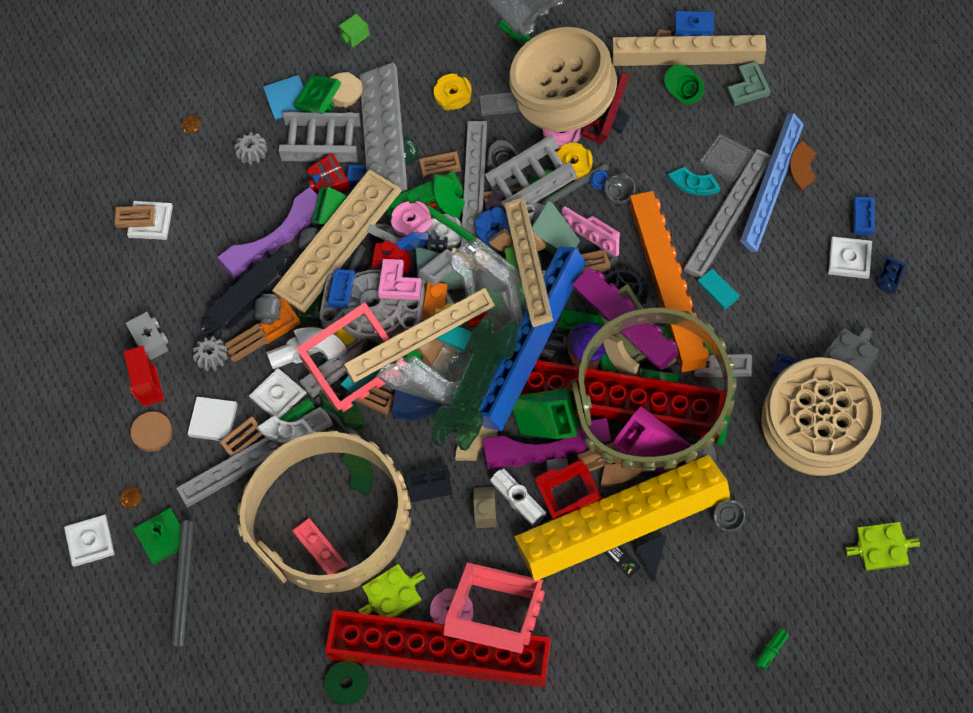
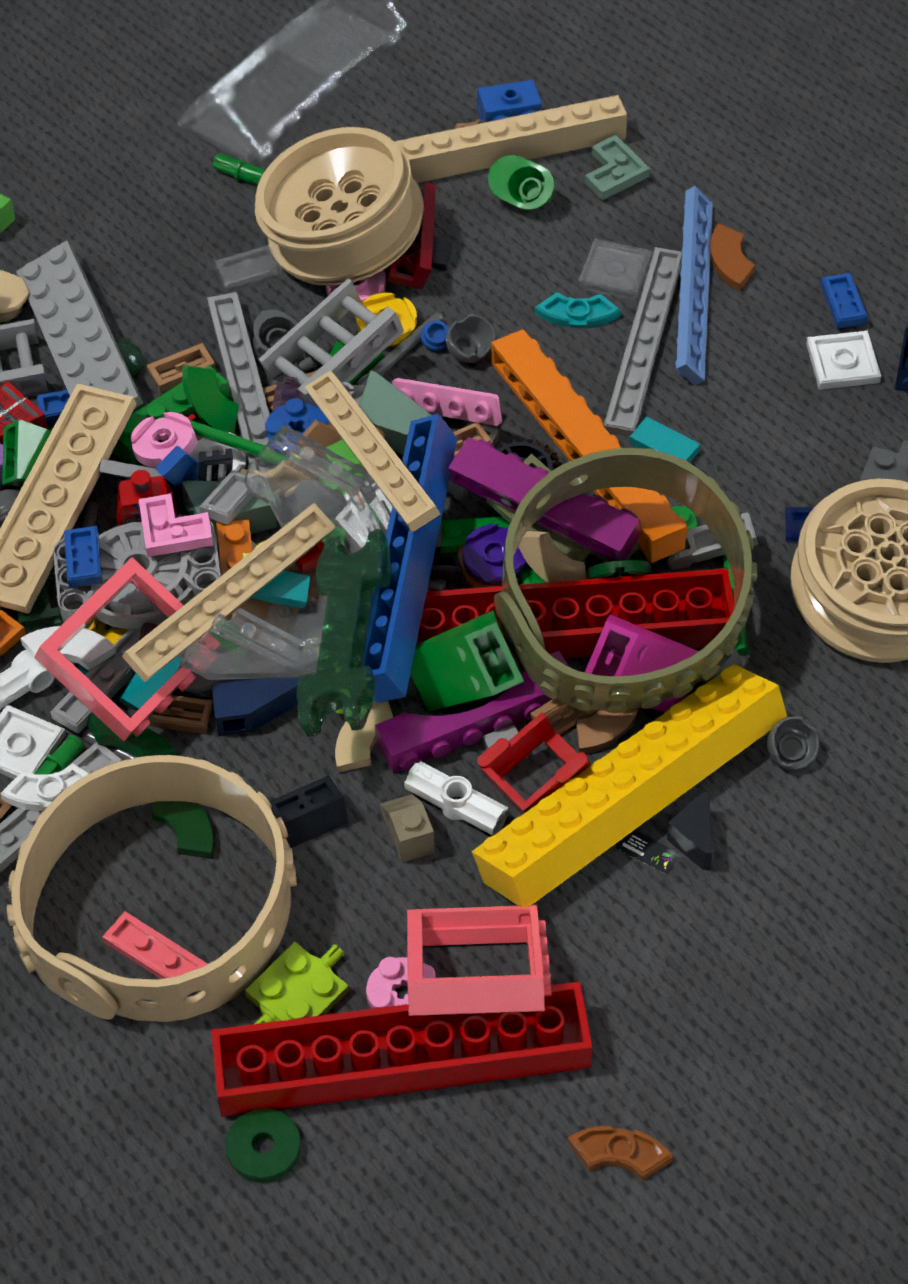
camera: 20 degrees left, 10 degrees down
(456, 100) = (173, 278): yellow plate -> none

